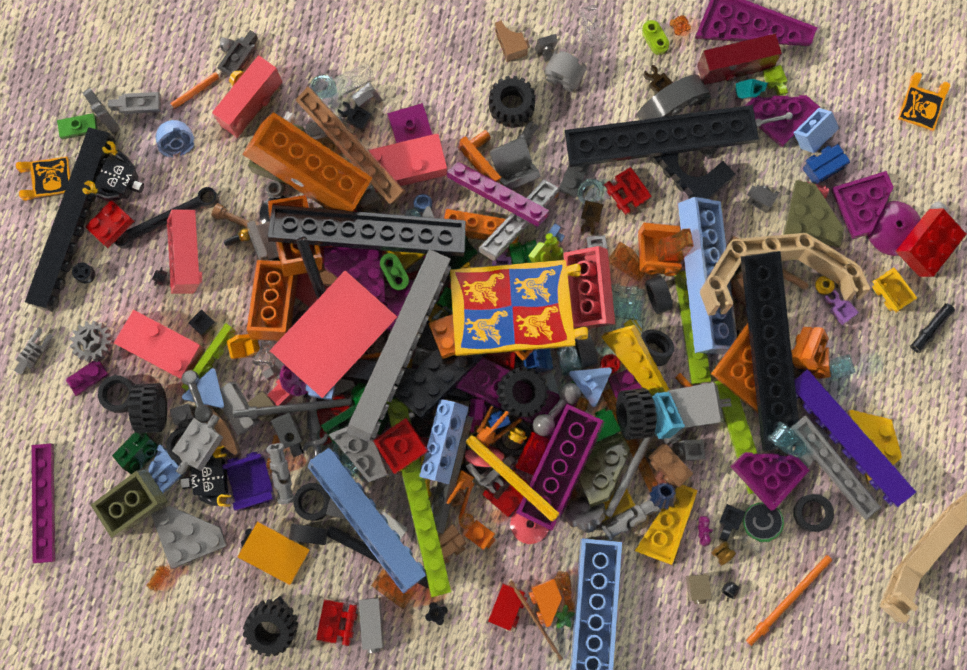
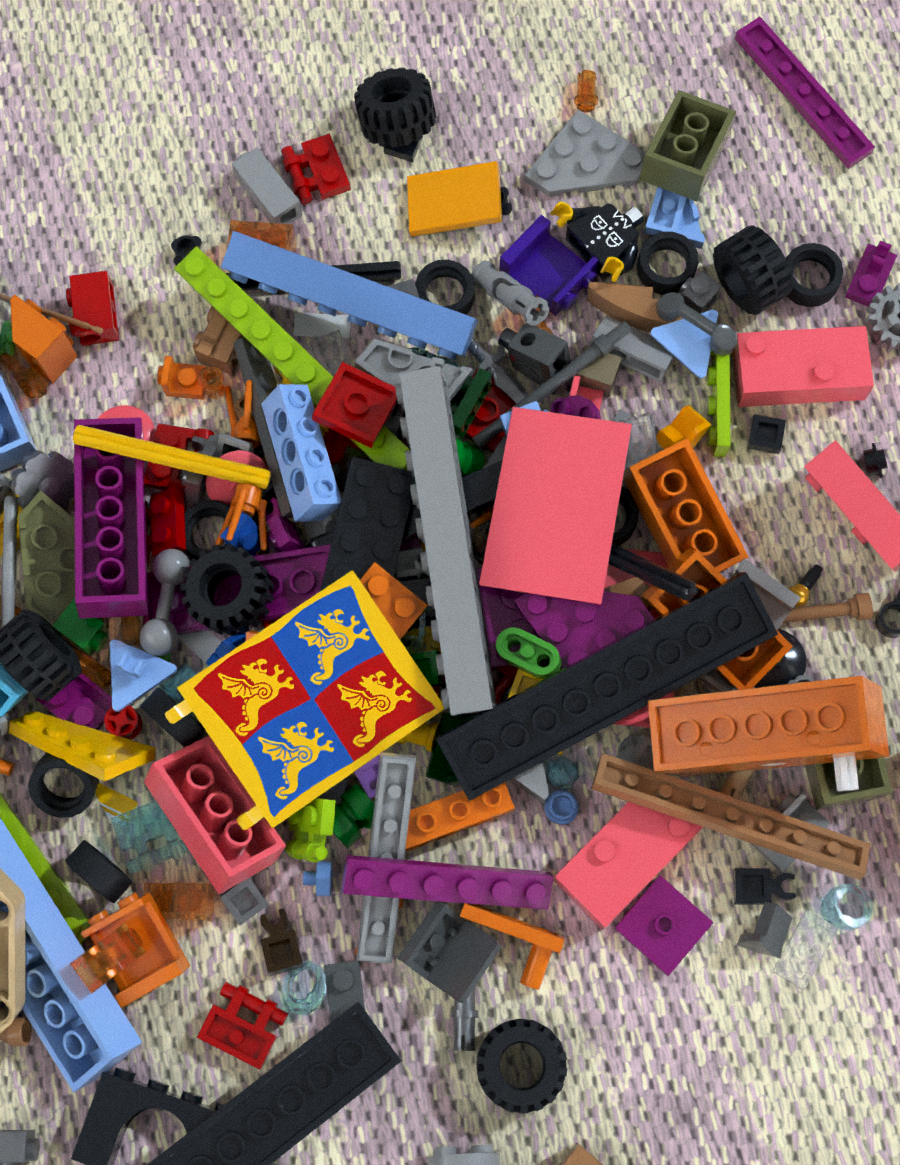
camera: 150 degrees right, 5 degrees down
(135, 452) = (729, 212): dark green bracket -> none
(197, 444) = (648, 260): light grey plate -> none
(308, 534) = (420, 242): black tyre -> none
(517, 435) = (203, 531): yellow plate -> none

